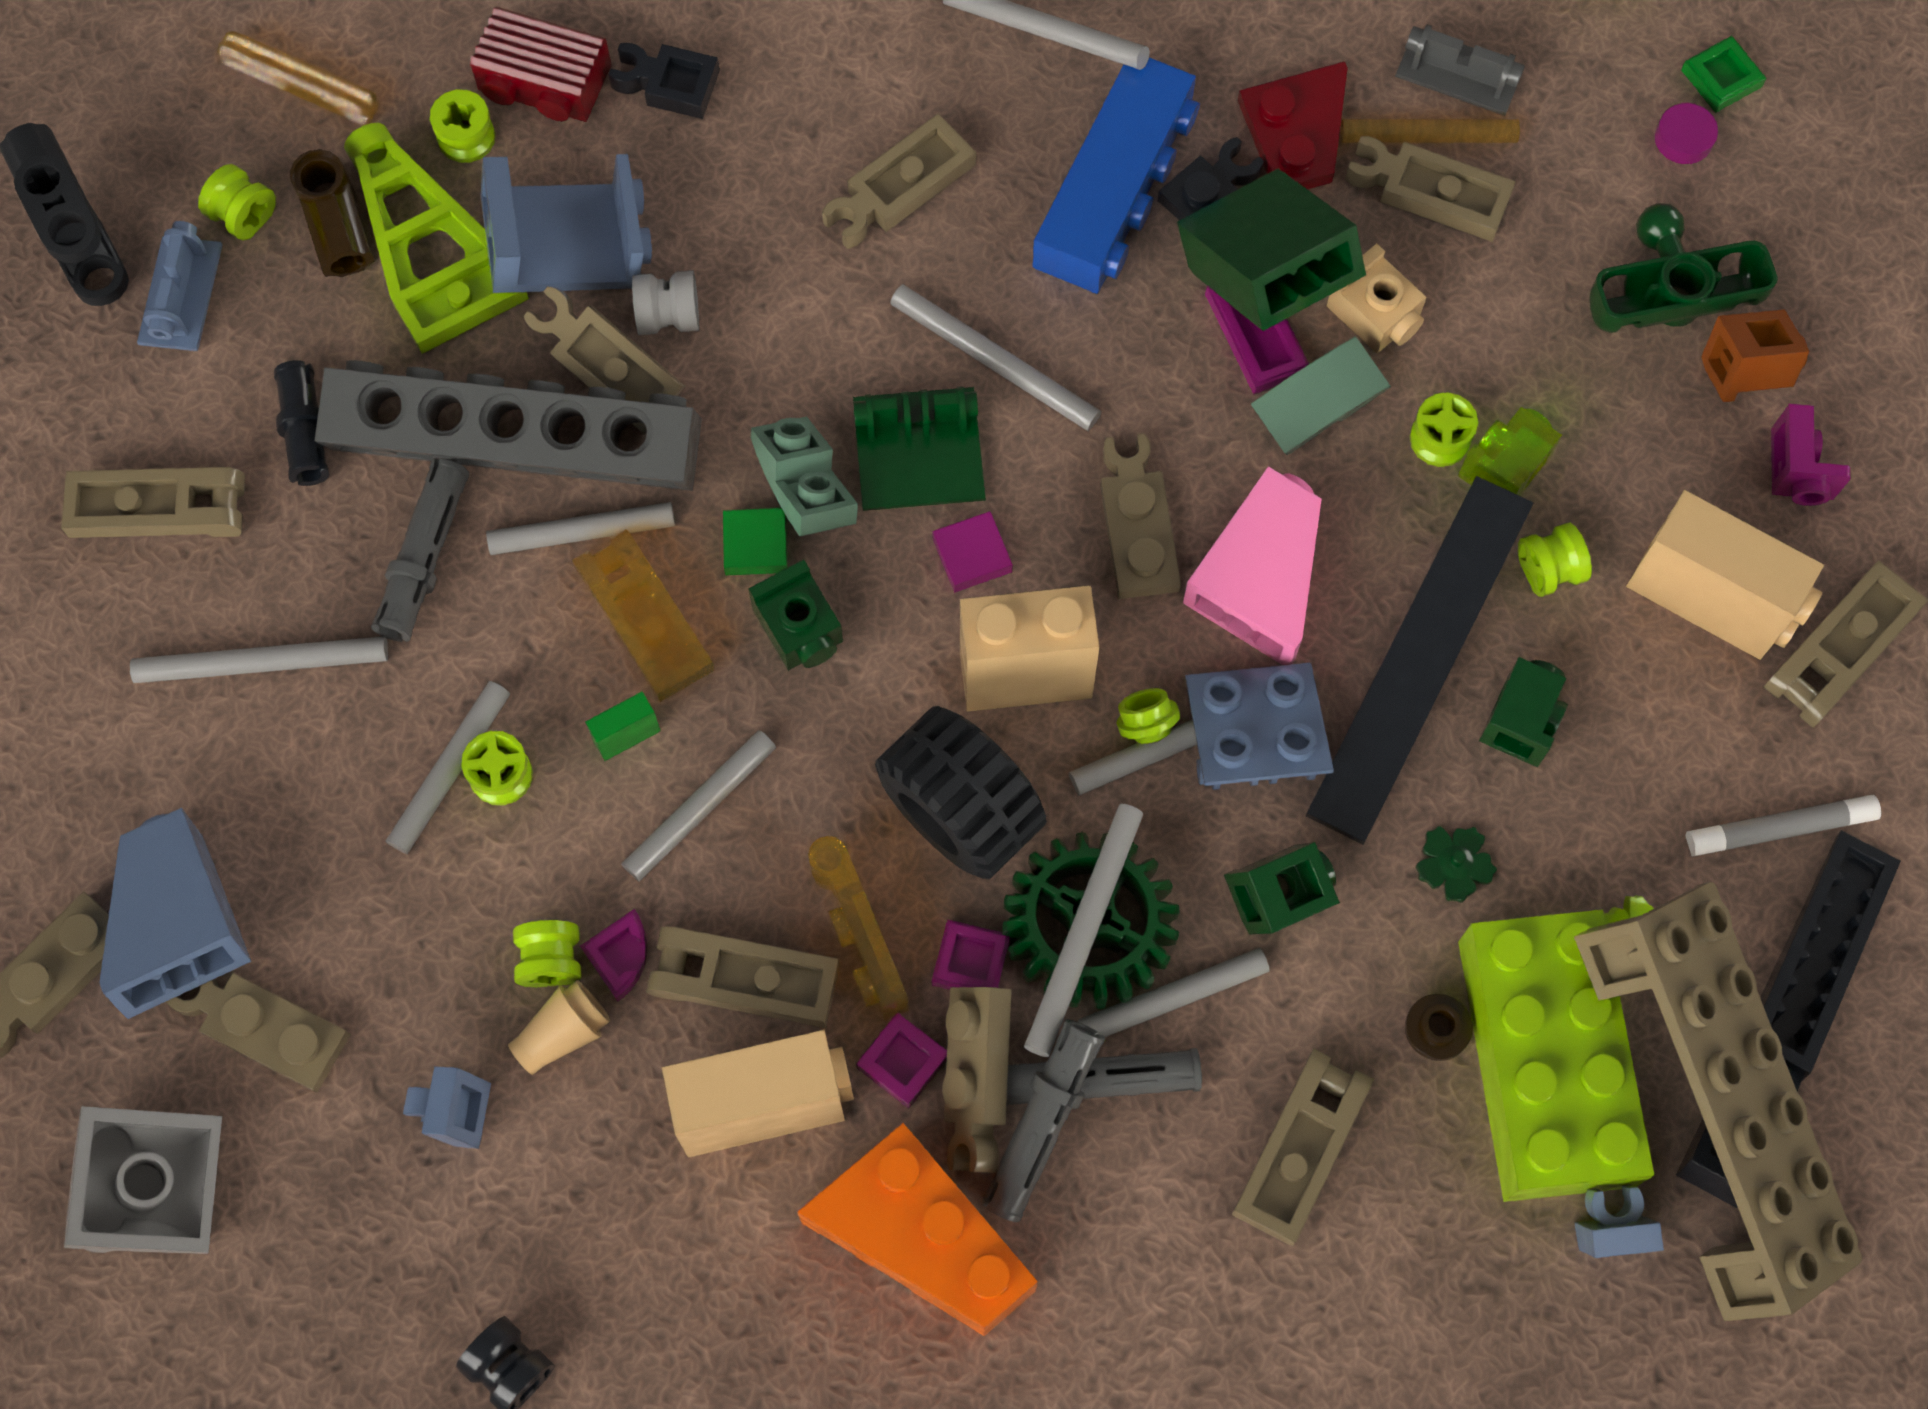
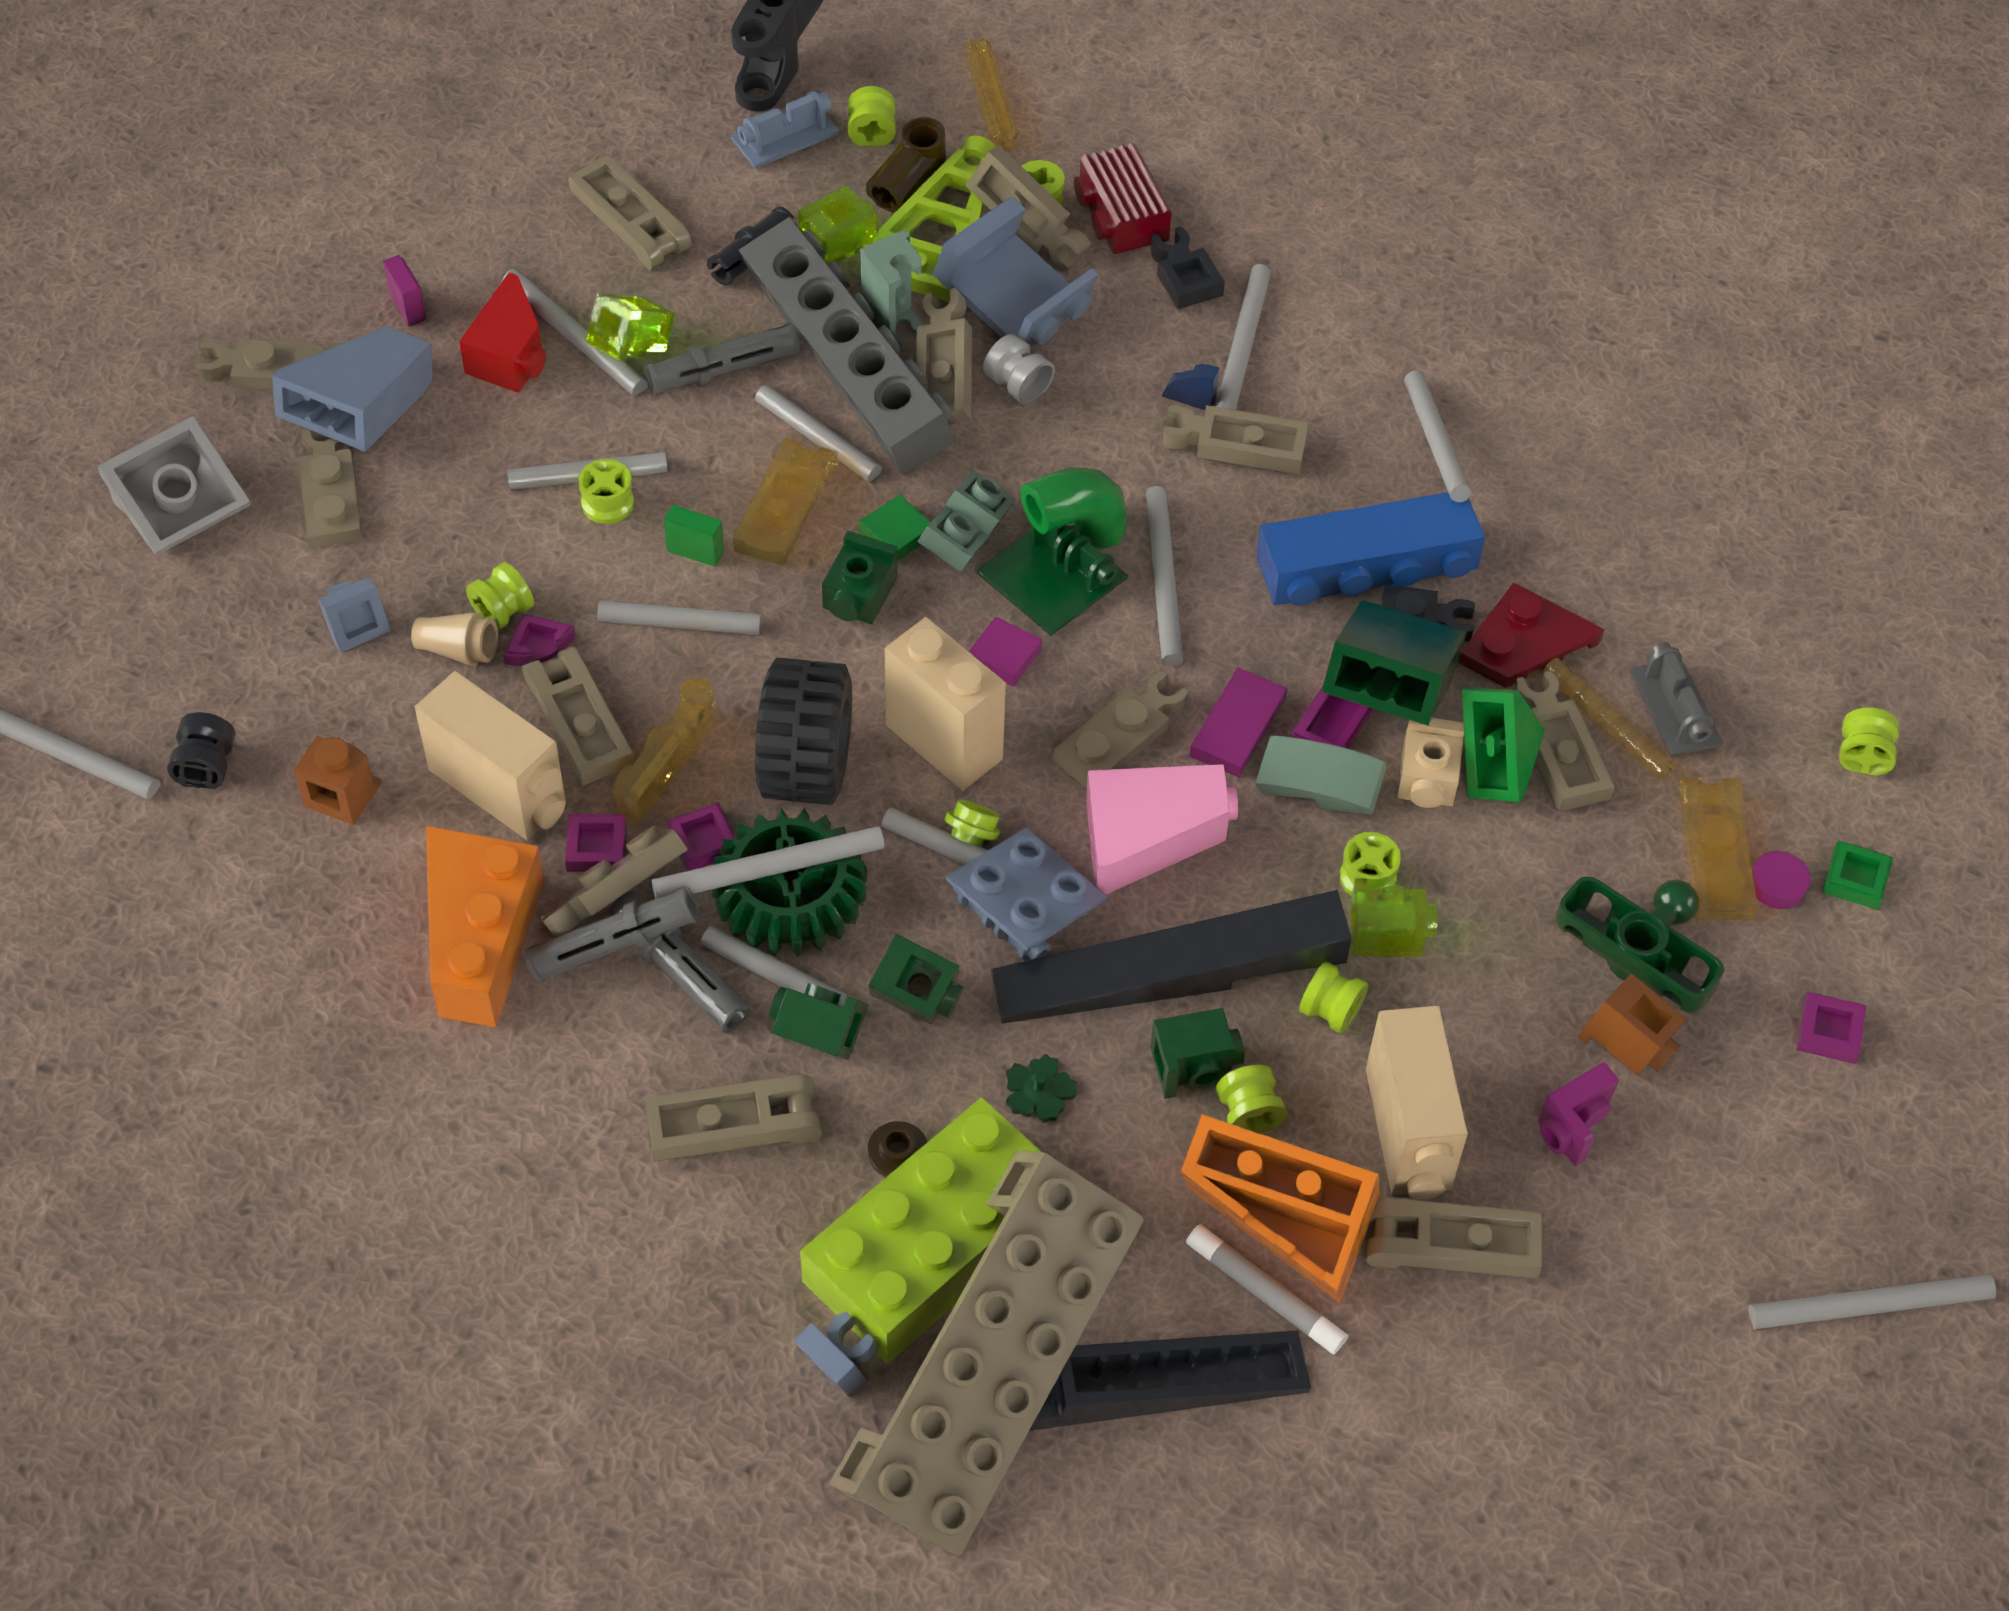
camera: 50 degrees right, 15 degrees down
(71, 784) = (404, 290): none -> magenta tile
(224, 729) = (504, 339): none -> red slope
(315, 606) = (629, 325): none -> clear neon green brick
(341, 314) = (840, 223): none -> clear neon green brick
(455, 152) = (1044, 216): none -> dark tan plate
(481, 343) = (887, 281): none -> sand green hinge
(649, 1256) = (340, 768): none -> dark orange brick
(786, 94) = (1244, 337): none -> light grey bar
(813, 176) = (1194, 386): none -> dark blue tile
(886, 375) = (1080, 497): none -> green cylinder
(1205, 418) = (1238, 722): none -> magenta tile
(1267, 1002) = (817, 1019): none -> dark green brick
(1416, 238) = (1499, 743): none -> green slope
(1607, 701) = (1252, 1099): none -> lime wheel
(1620, 151) = (1718, 849): none -> clear yellow plate
(1739, 746) = (1285, 1198): none -> orange wedge
(1850, 210) = (1831, 1027): none -> magenta tile

